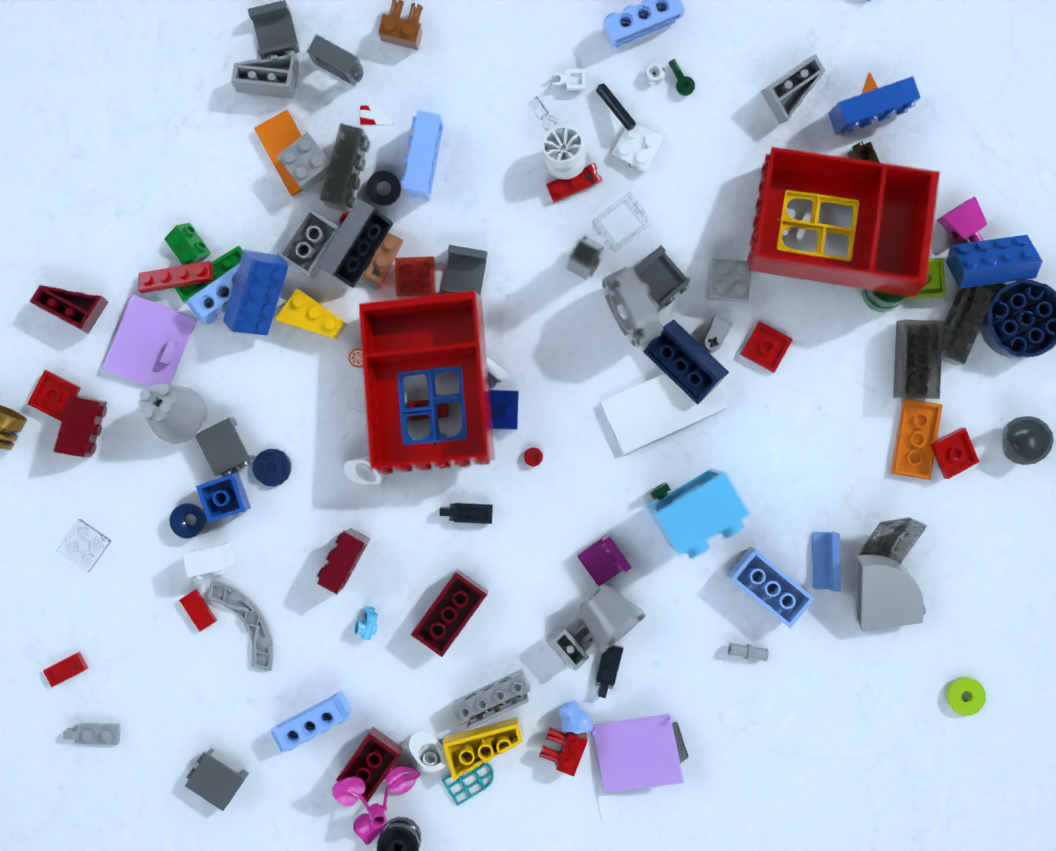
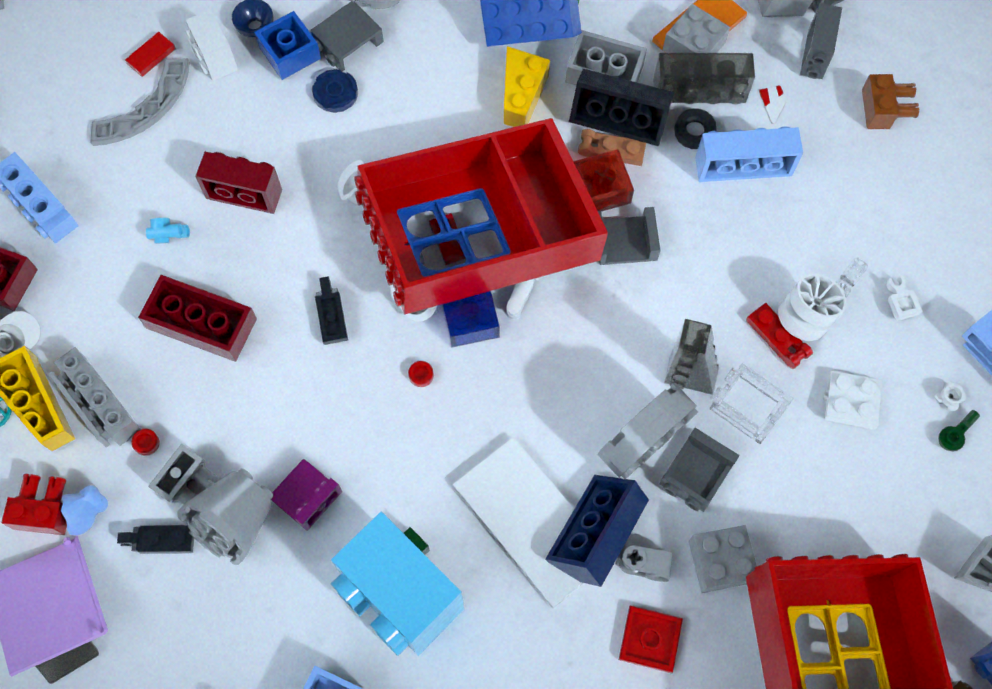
camera: 70 degrees right, 20 degrees down
(533, 666) = (145, 442): none -> red tile
(615, 106) = (891, 358): black axle -> none

